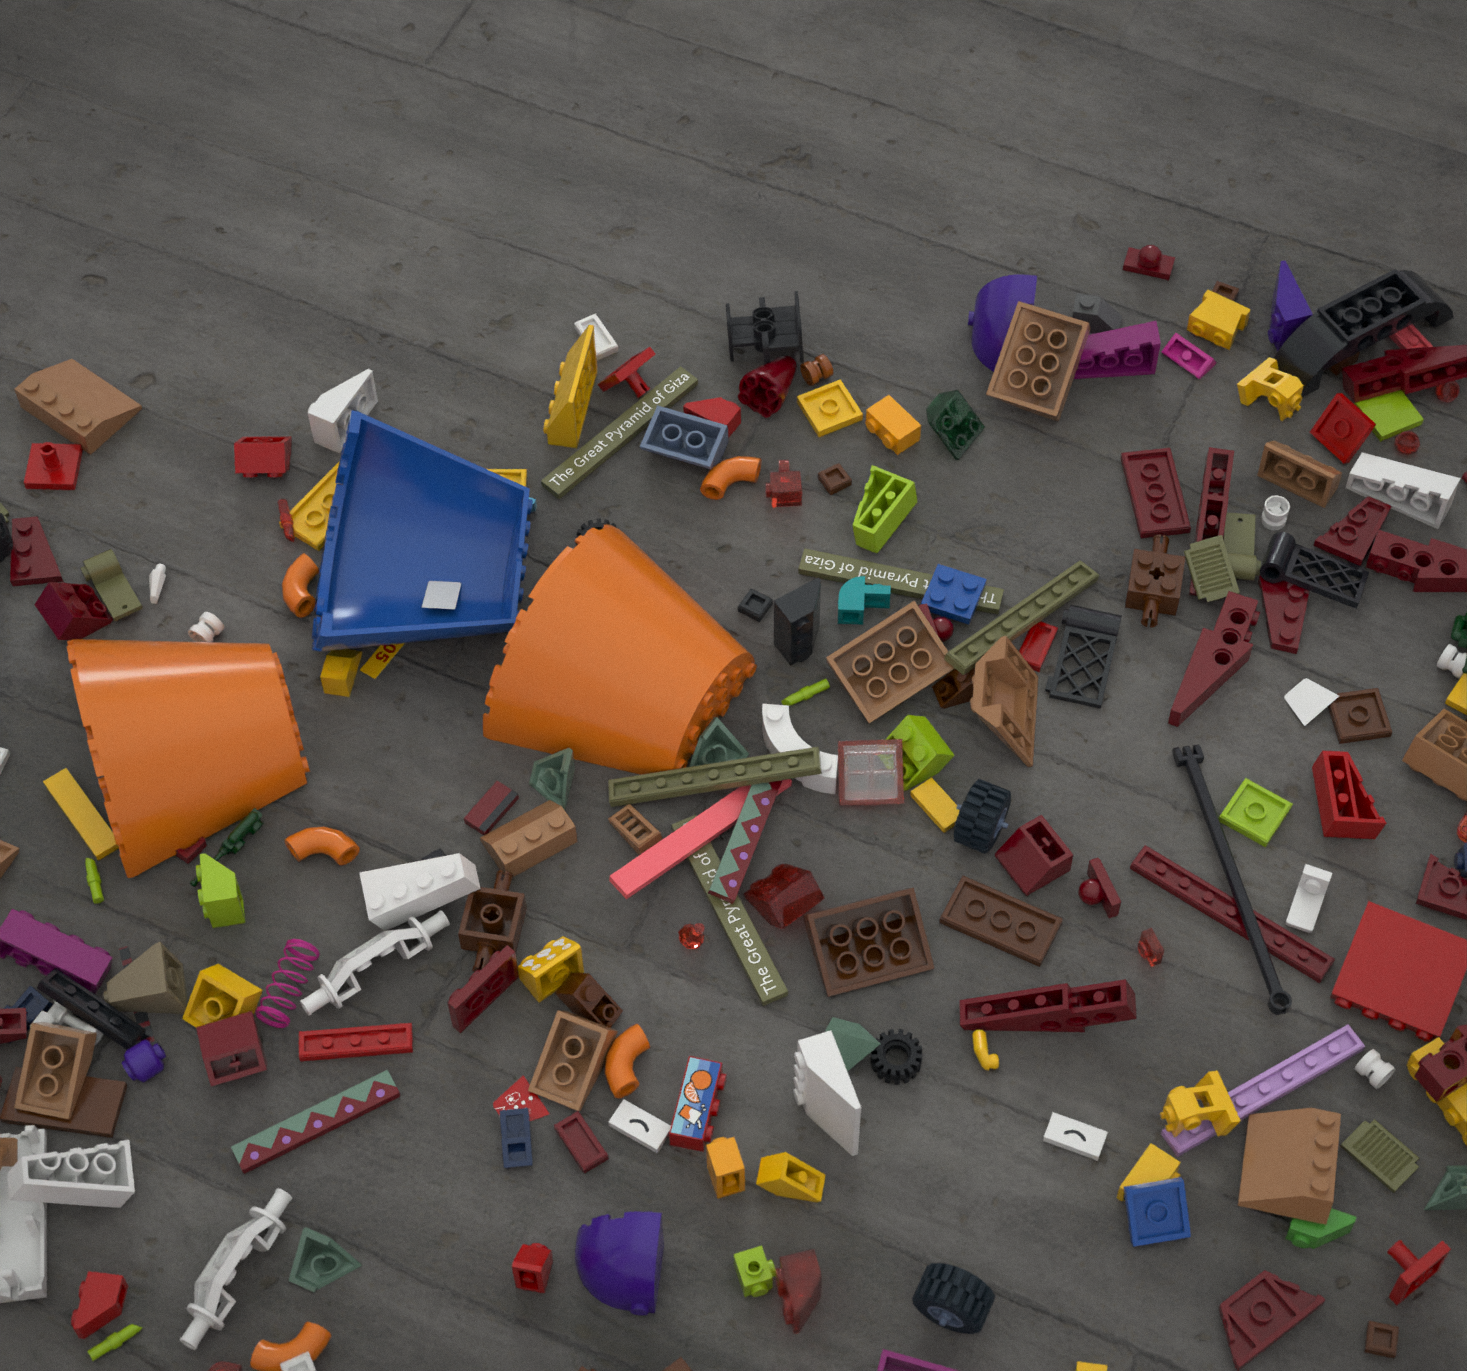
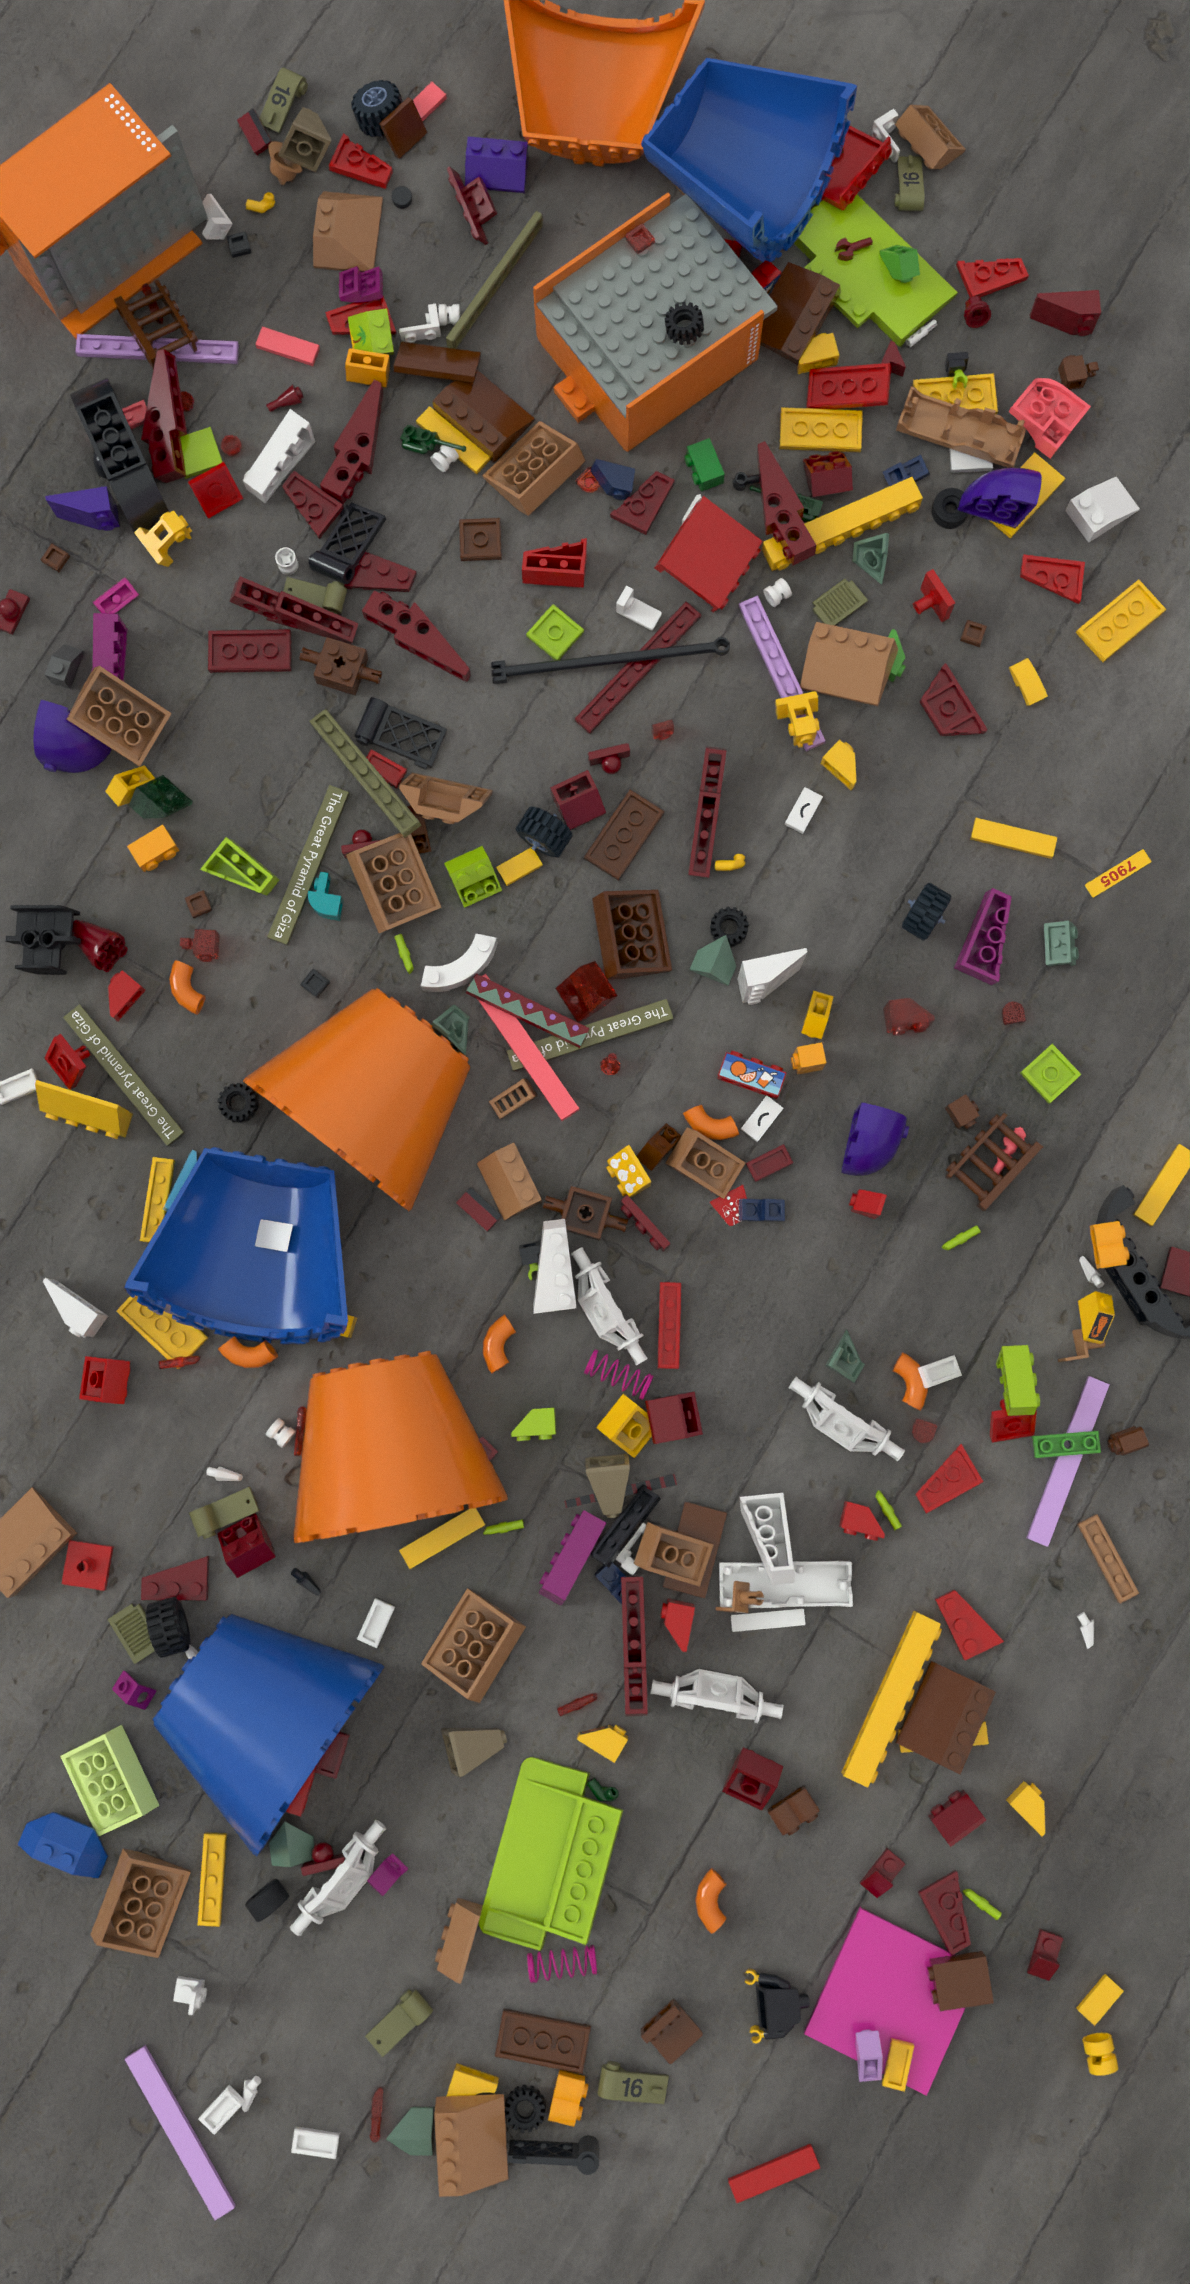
camera: 80 degrees left, 25 degrees up
(30, 677) = (305, 1580): none -> black bar
(144, 1060) = (670, 1486): dark purple head -> none
(235, 841) = (484, 1413): dark green piece -> none
(315, 1121) = (732, 1358): tile -> none
(554, 776) = (459, 1158): sand green slope -> none
(685, 437) = (148, 1020): sand blue slope -> none
(714, 776) = (480, 1031): olive tile -> none
(754, 1271) = (885, 1048): lime brick -> none
(797, 621) = (353, 946): black slope -> none
(816, 370) = (85, 903): dark orange wheel -> none
(829, 408) = (124, 898): yellow tile -> none
(871, 772) = (489, 911): clear piece -> none
(954, 593) = (330, 824): blue plate -> none
(970, 389) = (124, 784): none -> yellow slope
(1157, 1211) = (872, 762): blue plate -> none
(1211, 569) = (338, 620): olive window -> none
(1218, 319) = (84, 566): yellow hips -> none
(1298, 473) = (251, 533): medium nougat slope -> none
(1309, 699) = (462, 572): white sticker -> none

